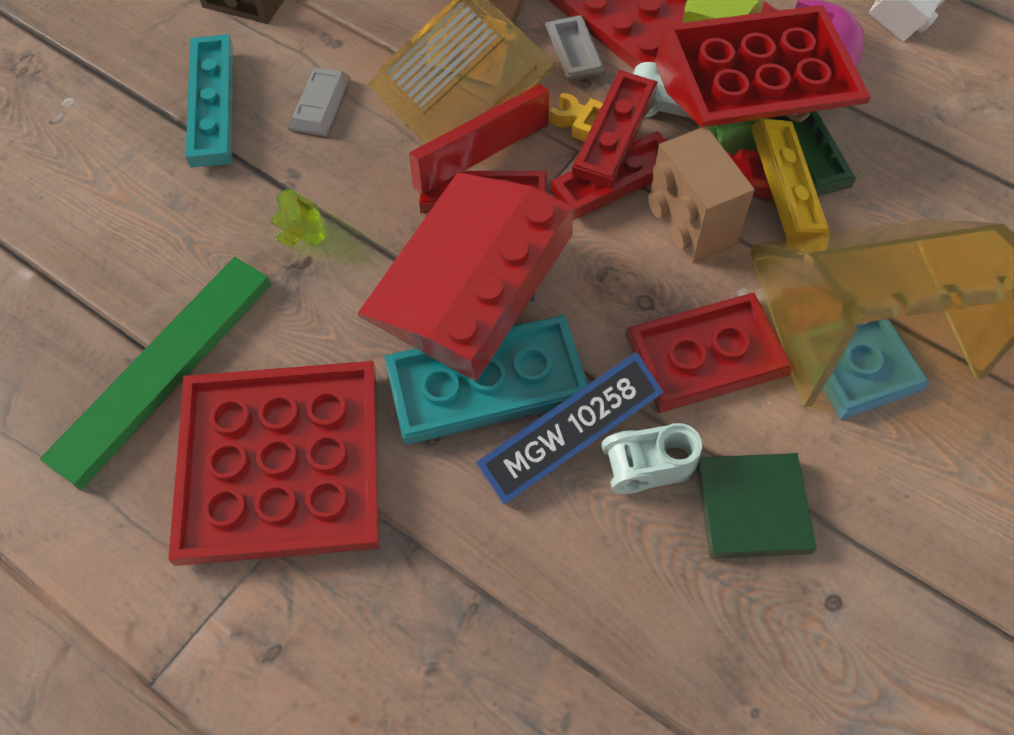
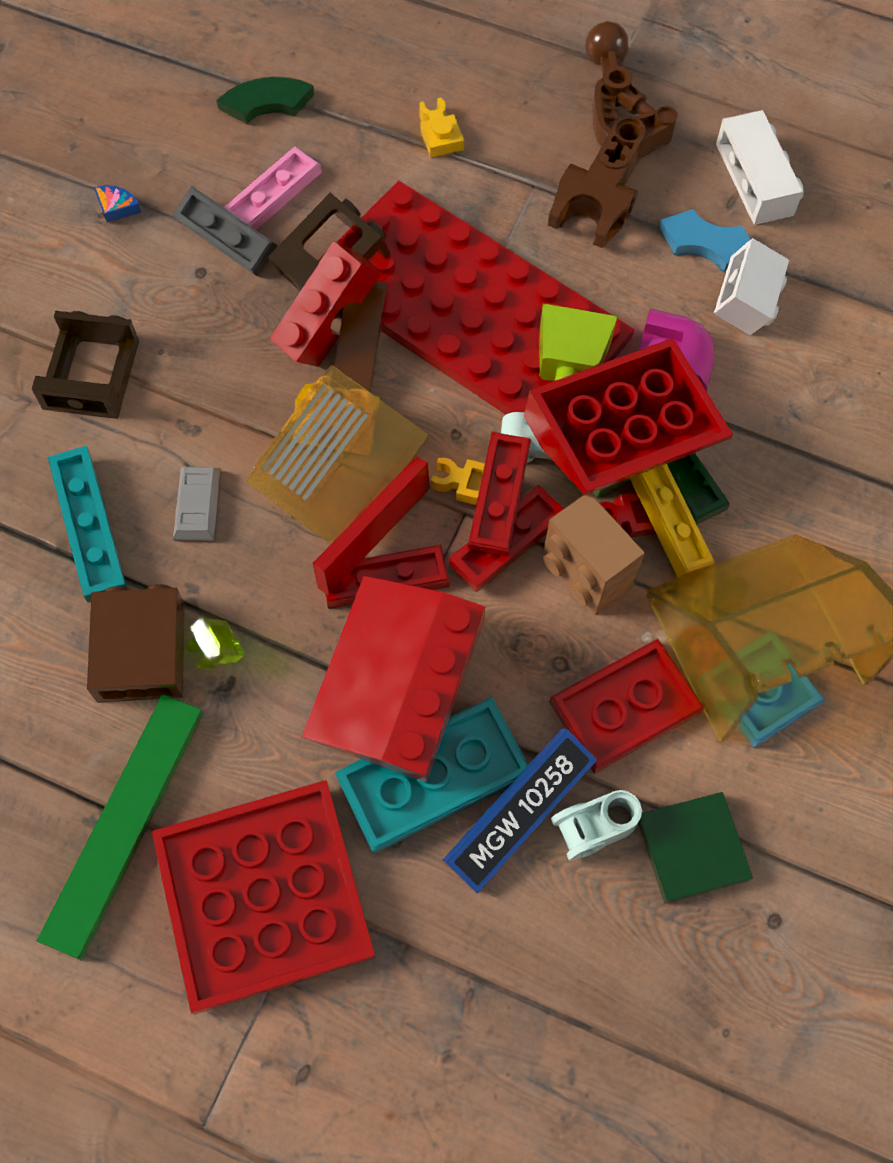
camera: 15 degrees left, 5 degrees up
(222, 207) = (136, 644): none -> reddish brown brick
(575, 48) = (437, 398): light grey tile -> none

